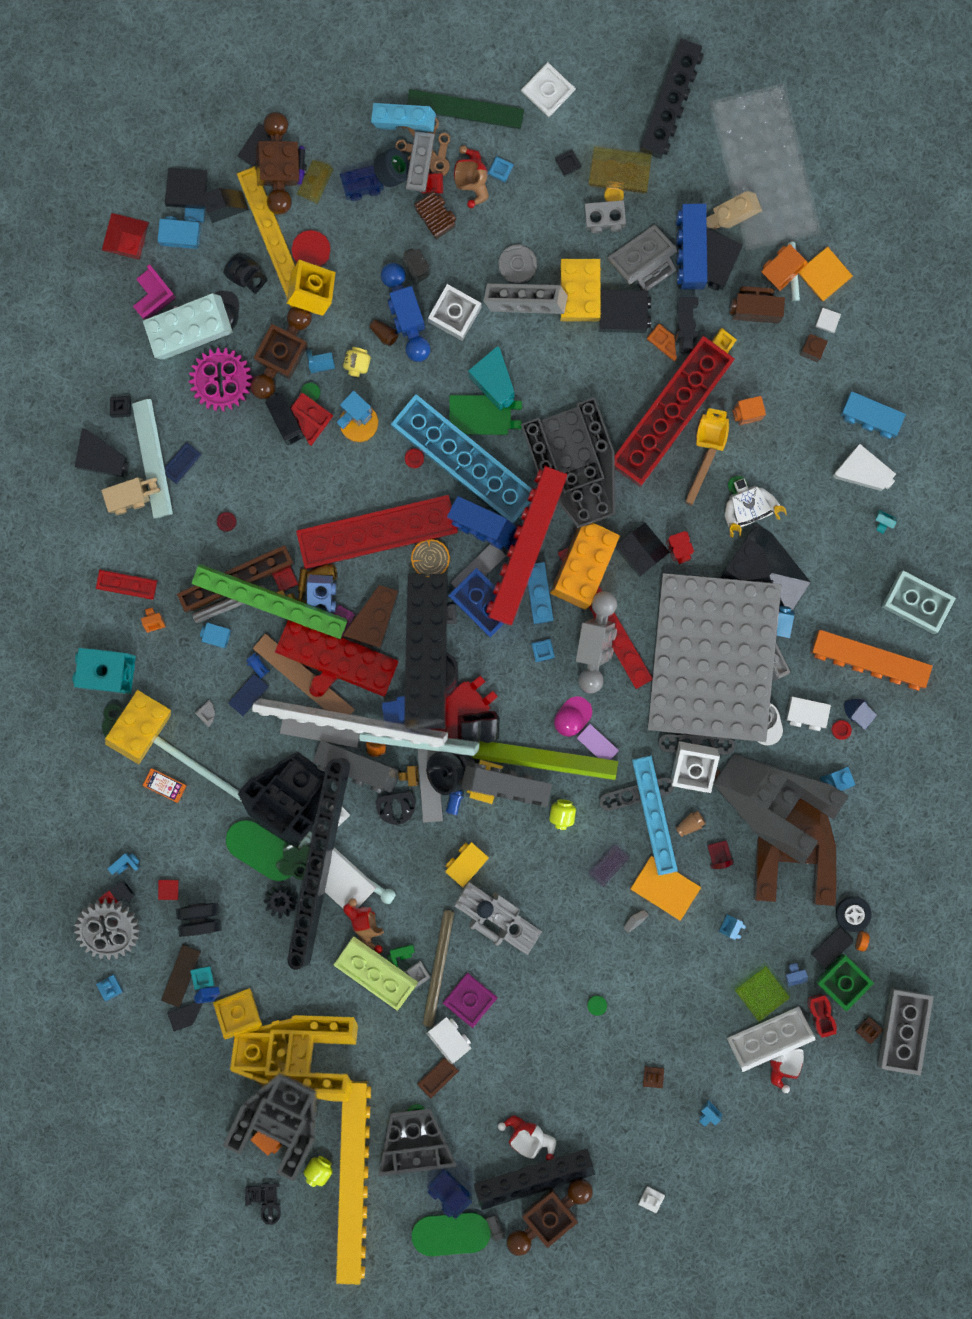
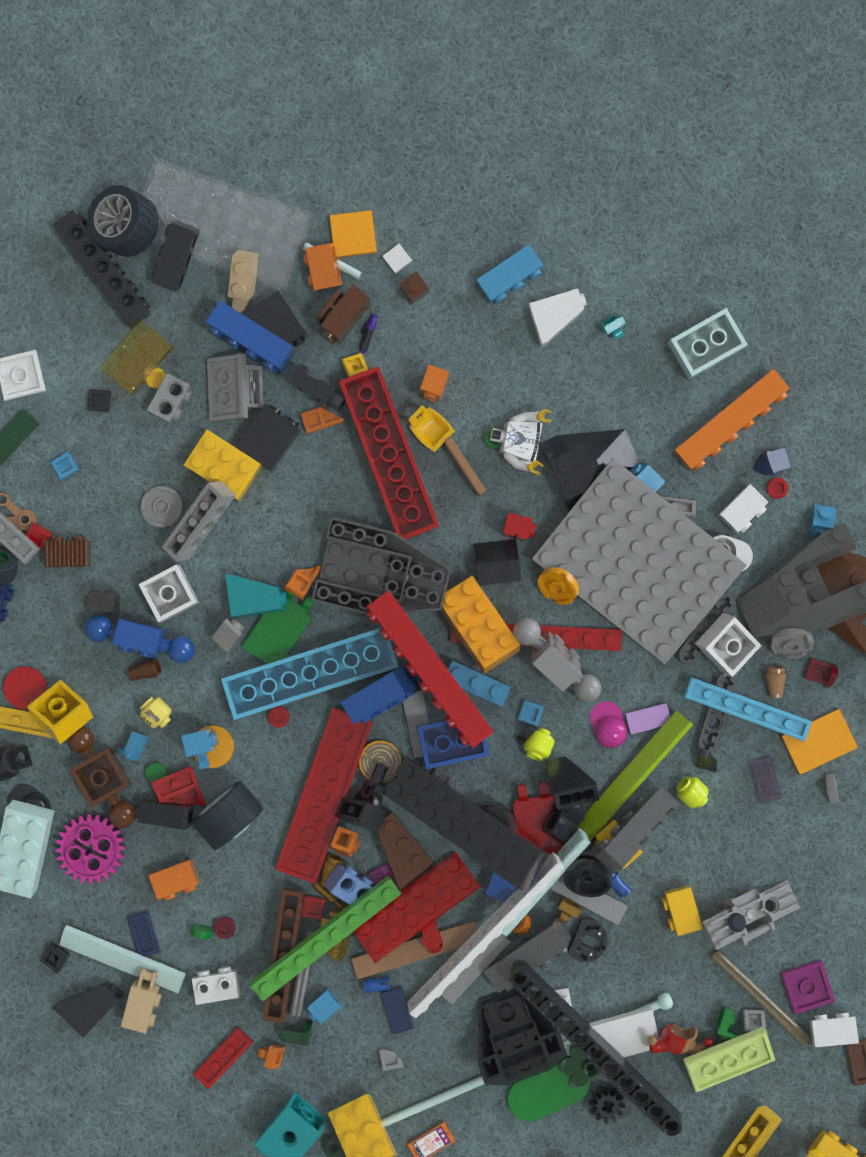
camera: 55 degrees left, 0 degrees up
(177, 543) = (216, 986): none -> white brick
(178, 630) = (297, 1037): none -> dark green tile
(211, 505) = (201, 932): none -> green tile
(239, 459) = (174, 879): none -> orange brick
(266, 619) = (339, 951): none -> clear yellow brick
(314, 466) = (227, 815): none -> black wheel
(351, 574) = (345, 842): none -> orange brick
(388, 568) = (365, 807): none -> black brick
(453, 379) = (229, 634): none -> light grey slope
(471, 175) = (53, 496): medium nougat piece -> none
(508, 713) = (570, 783): none -> black slope
(522, 671) = (539, 744): none -> neon yellow head
(527, 657) = (525, 734): none -> black tile
(530, 408) = (302, 581): none -> orange tile
(593, 810) = (706, 761): none -> black tile
(655, 607) = (558, 585): none -> light orange tile
(718, 90) = (122, 221): none -> black wheel
(718, 147) = (175, 255): none -> black brick
(728, 816) = (792, 642): none -> light grey tile
(755, 335) = (367, 332): none -> piece

